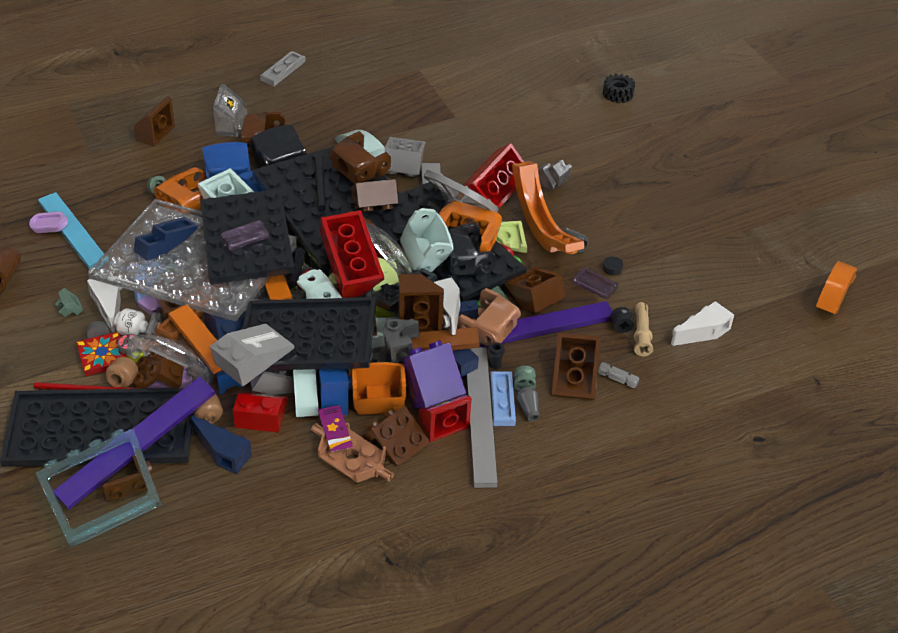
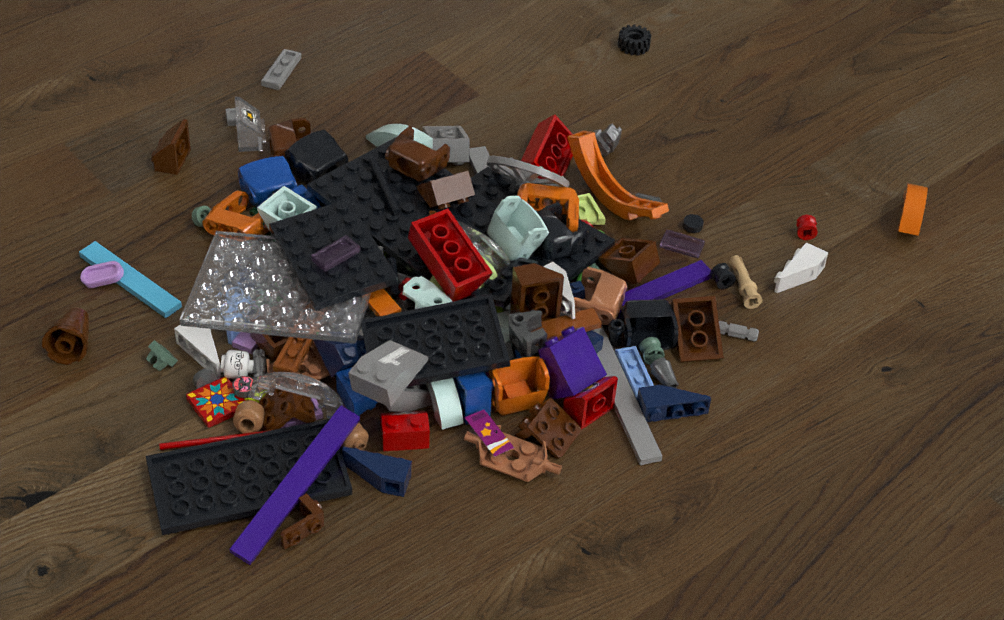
camera: 15 degrees left, 0 degrees up
(113, 518) = (273, 587): clear light blue windscreen -> none
(164, 238) = (248, 270): dark blue slope -> none
(196, 334) = (320, 365): orange tile -> none
(519, 431) = (665, 403): none -> dark blue slope
(531, 349) = (647, 320): none -> black piece
(723, 287) = (806, 227): none -> red wheel

